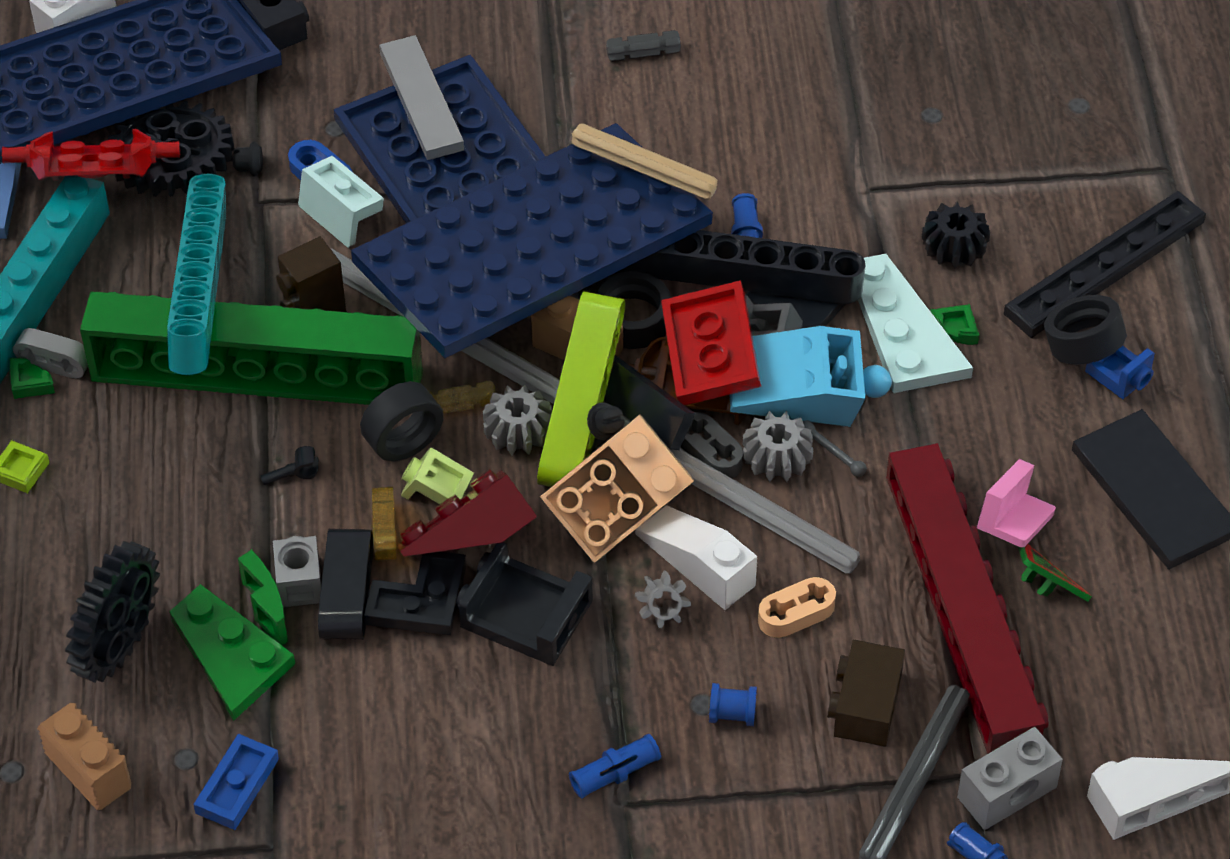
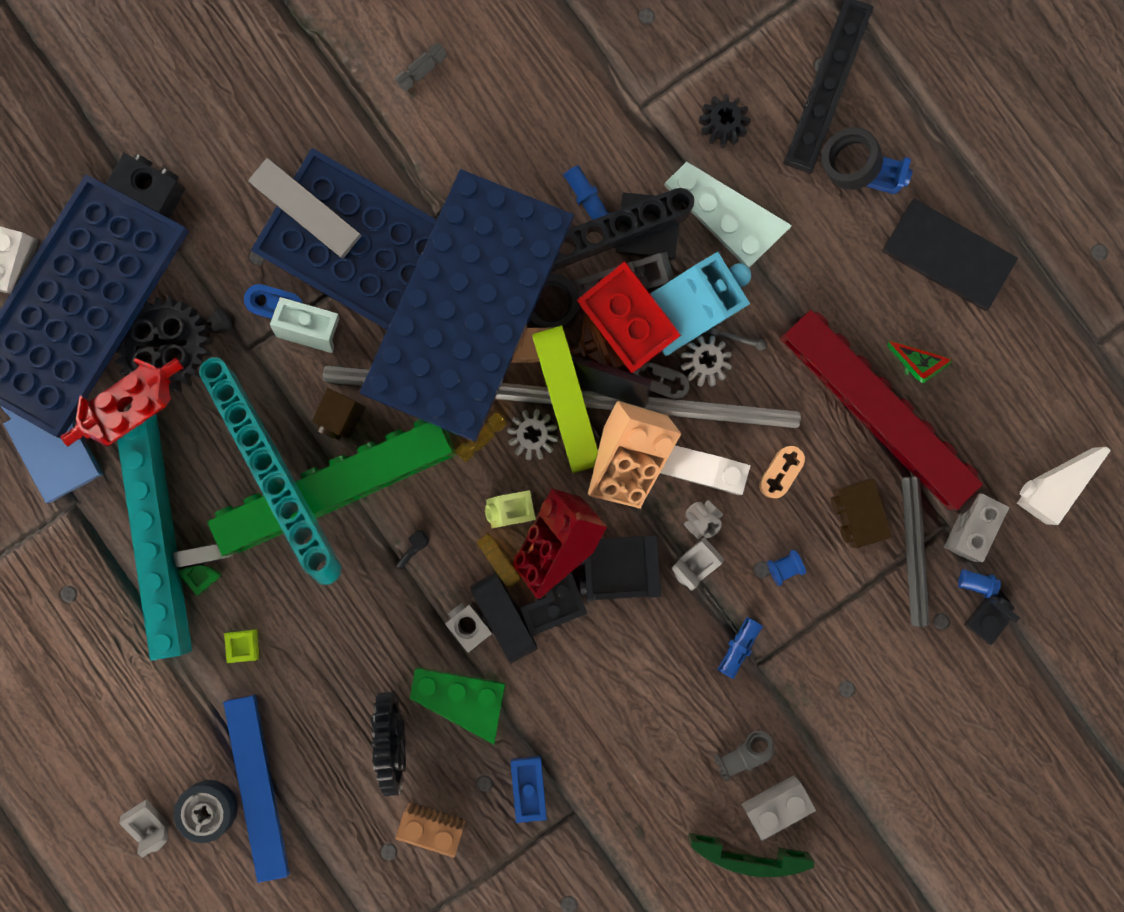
camera: 25 degrees left, 35 degrees up
(265, 596) = (470, 662): green slope -> none
(391, 408) = (465, 486): black tyre -> none
(604, 421) = (599, 419): black piece -> none
(623, 644) = (697, 564): none -> light grey bracket
(644, 161) = (507, 202): tan axle -> none
(958, 323) = (761, 191): green tile -> none
(1012, 512) = (880, 328): bright pink panel -> none

